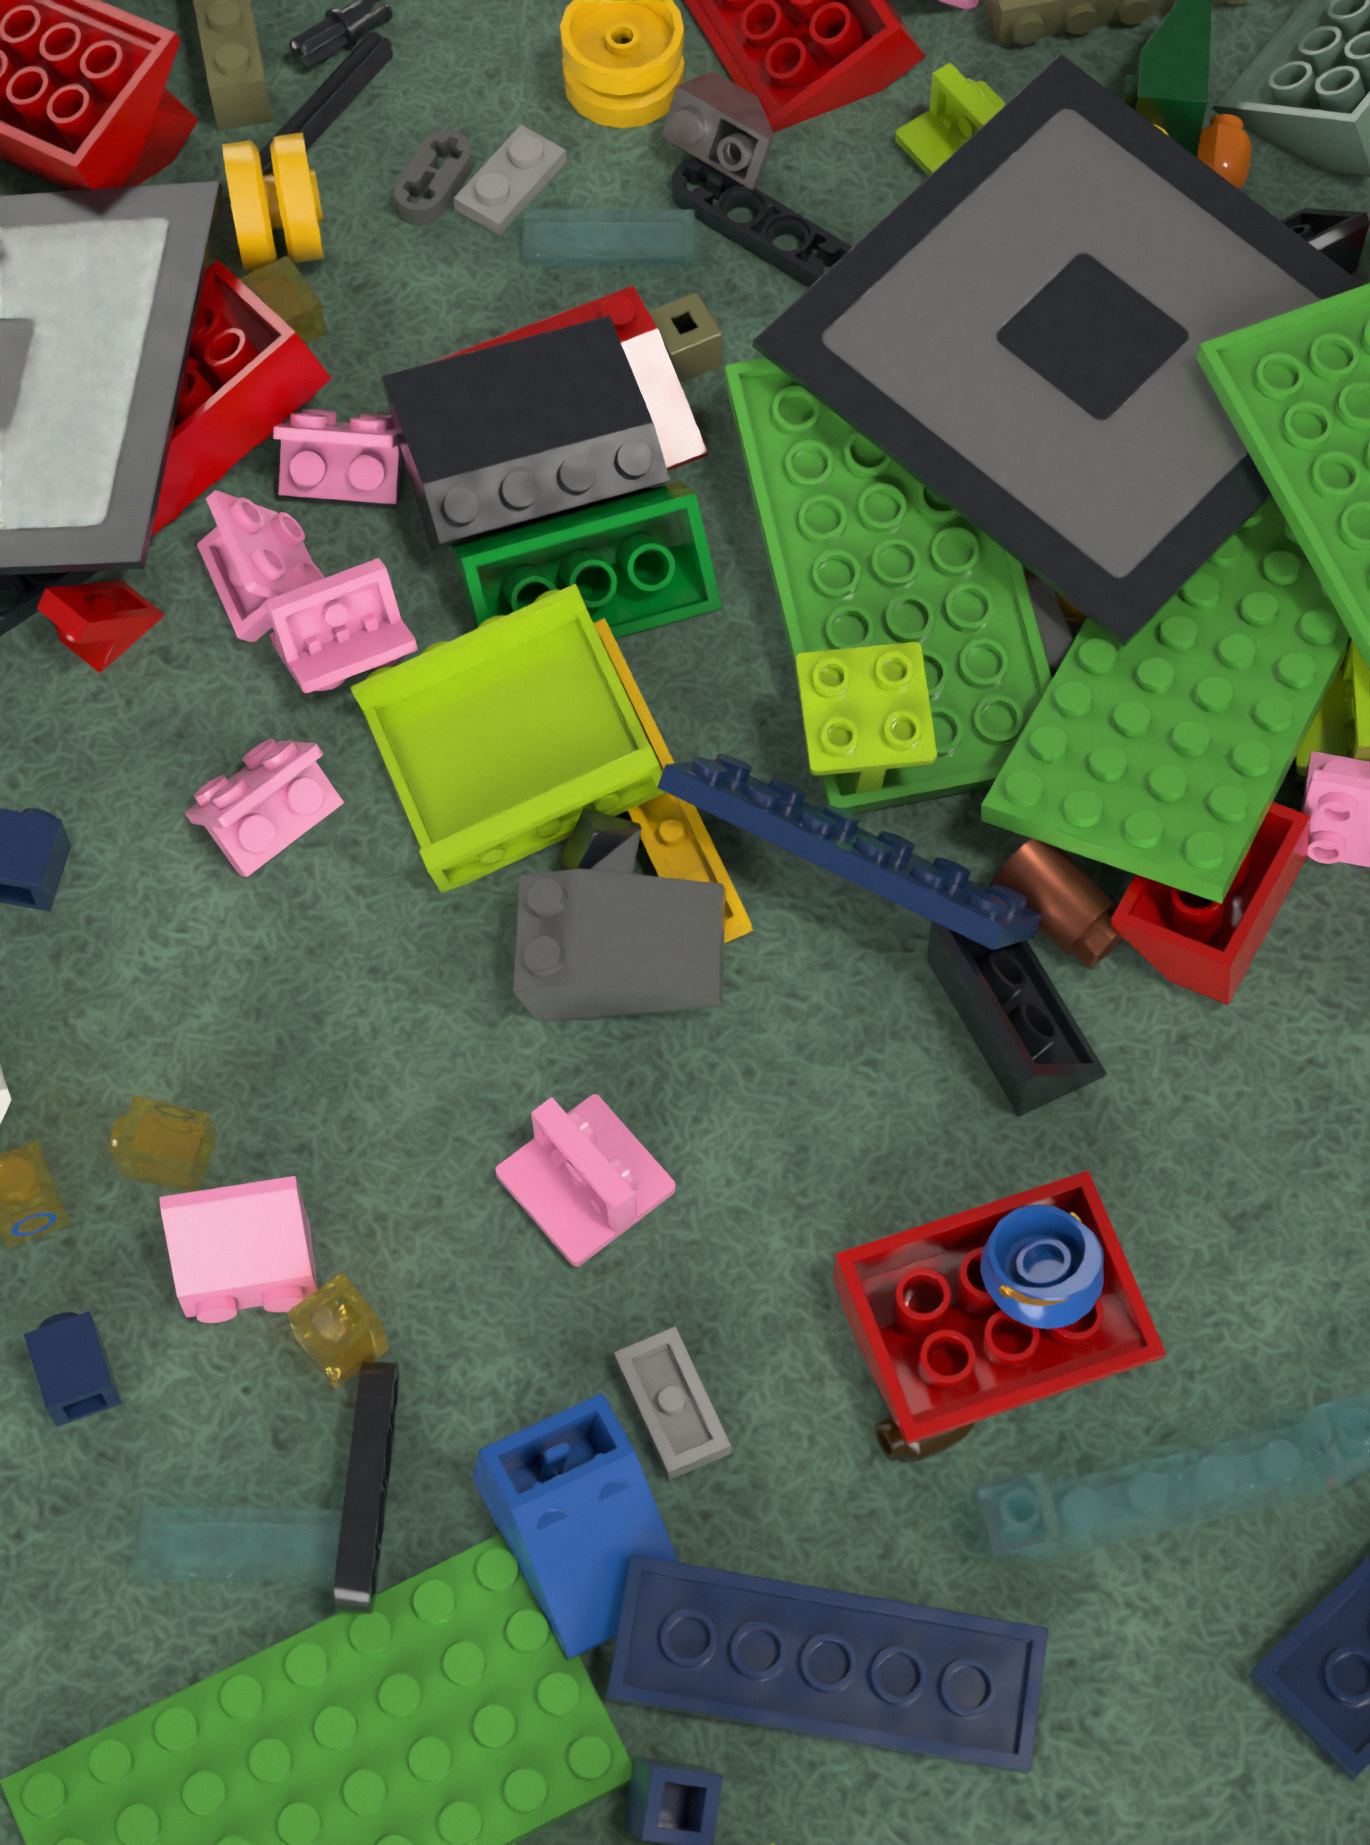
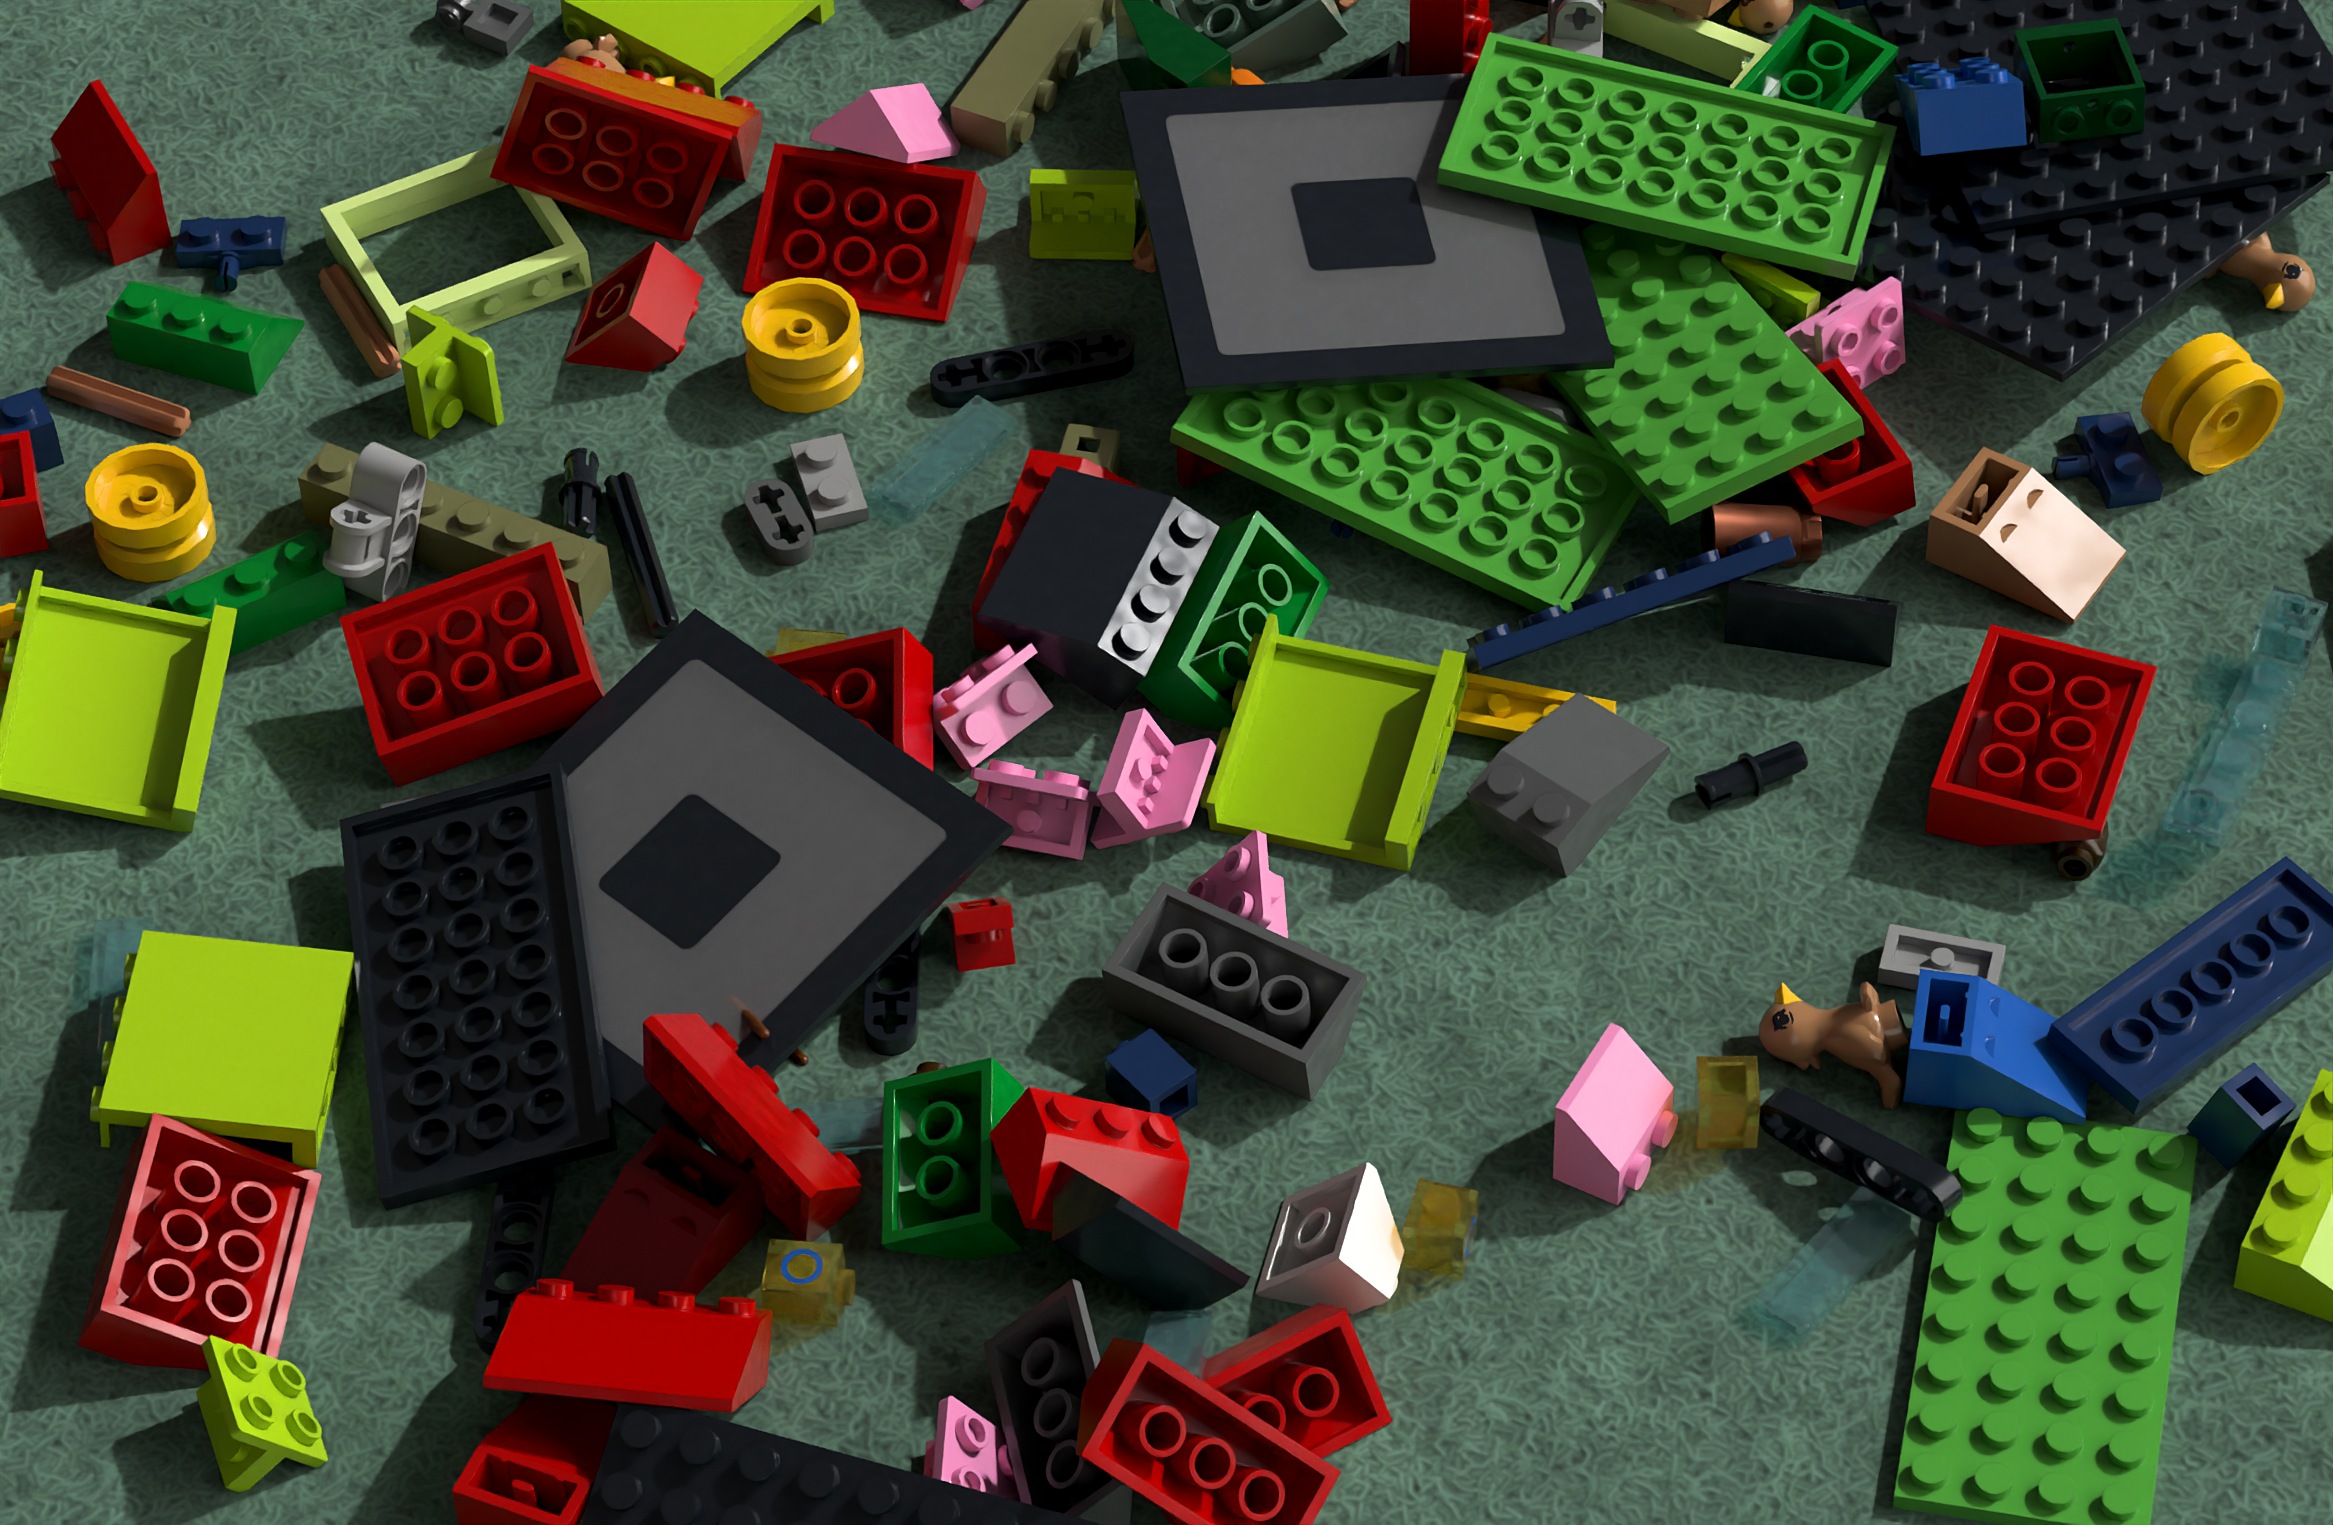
camera: 50 degrees left, 15 degrees down
(72, 1367) = (1607, 1277): dark blue brick -> none
(150, 854) = (1234, 990): none -> dark grey slope
(163, 1144) = (1475, 1128): clear yellow brick -> none
(274, 201) = (732, 587): yellow wheel -> none
(510, 1383) = (1854, 1032): none -> medium nougat animal
(584, 1177) = (1725, 914): bright pink bracket -> none
(602, 844) = (1474, 746): slope -> none
(721, 127) = (937, 329): flat silver slope -> none
(773, 1088) = (1749, 774): none -> black axle
(866, 711) = (1537, 520): lime bracket -> none
(1043, 1266) = (2046, 676): blue piece -> none
(1258, 1125) = (2021, 538): none -> slope

